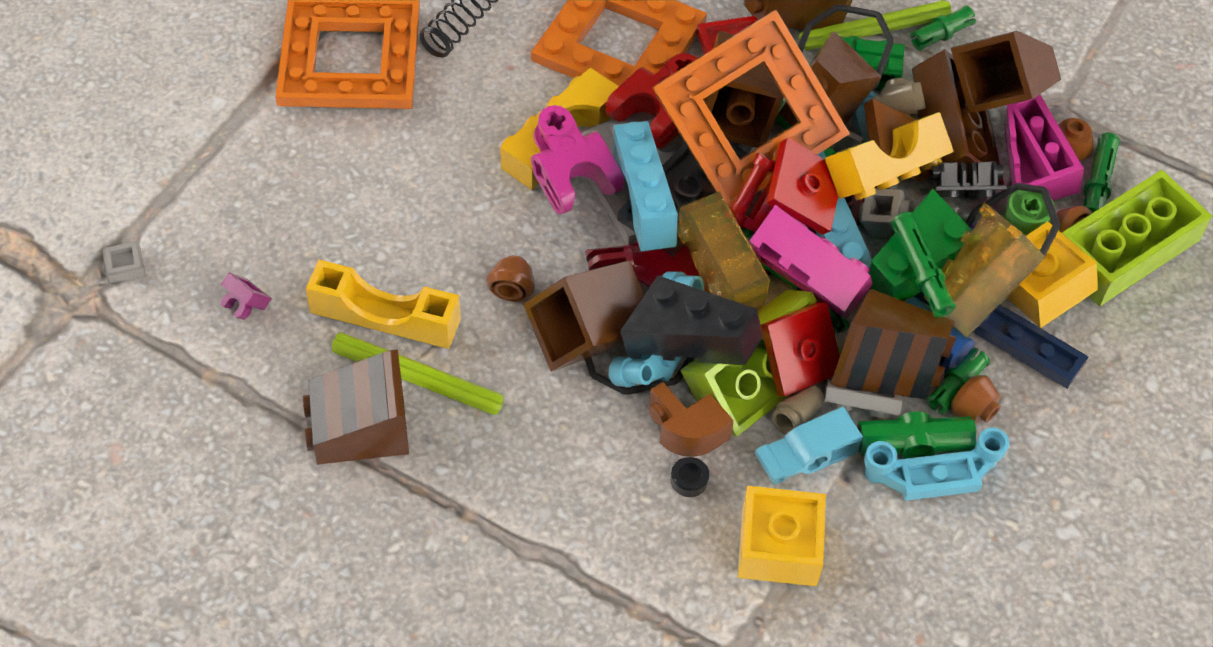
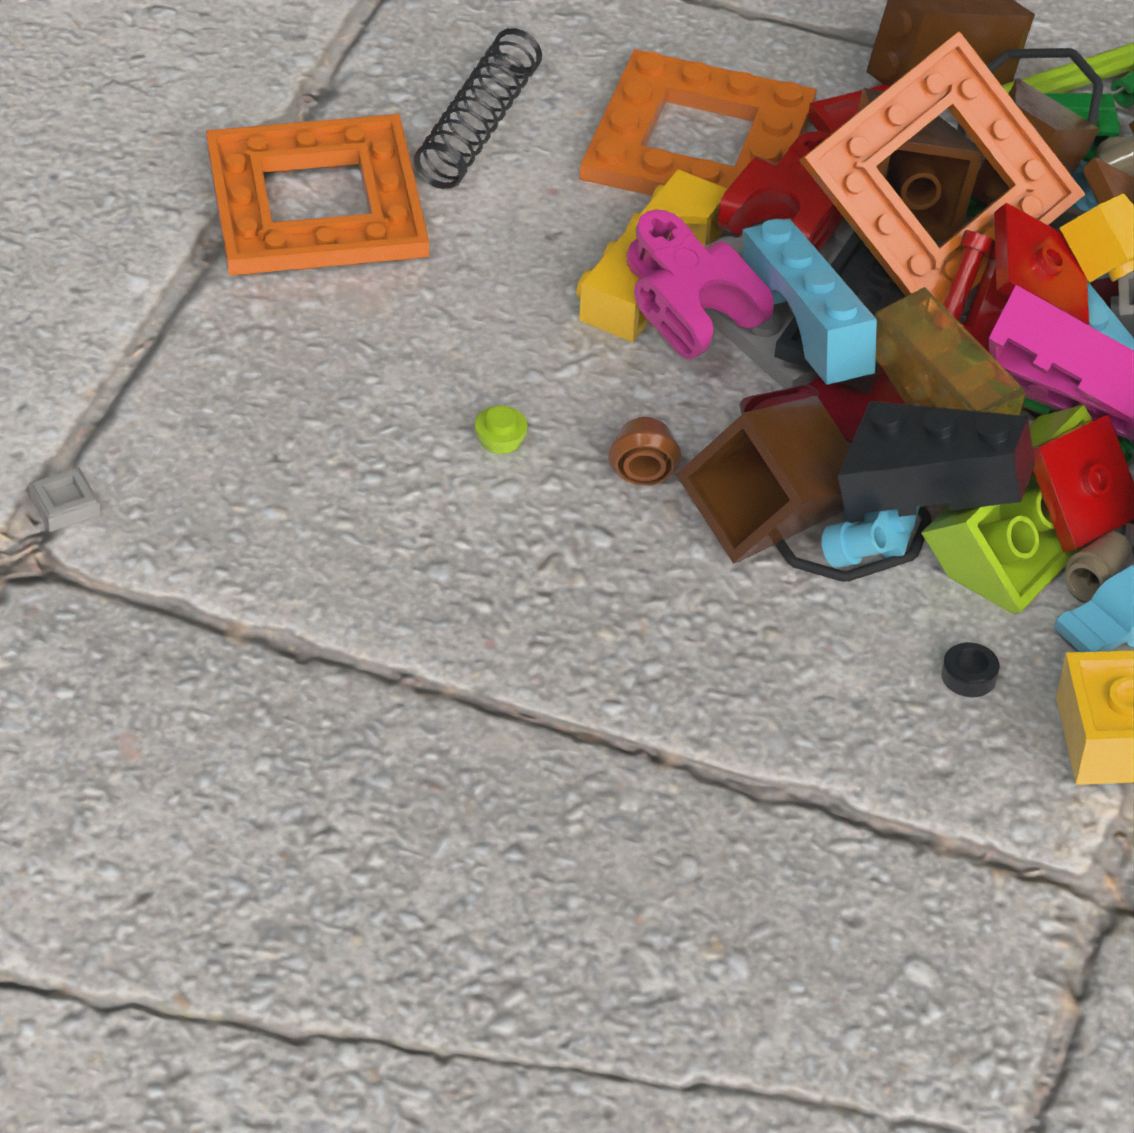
camera: 10 degrees left, 10 degrees down
(245, 293) = (260, 513): tile -> none
(344, 296) = (412, 499): yellow arch -> none
(357, 411) = (482, 637): reddish brown slope -> none
(423, 246) = (501, 429): none -> lime plate
(424, 375) = (543, 587): lime axle -> none
(691, 429) = (955, 606): dark orange brick -> none

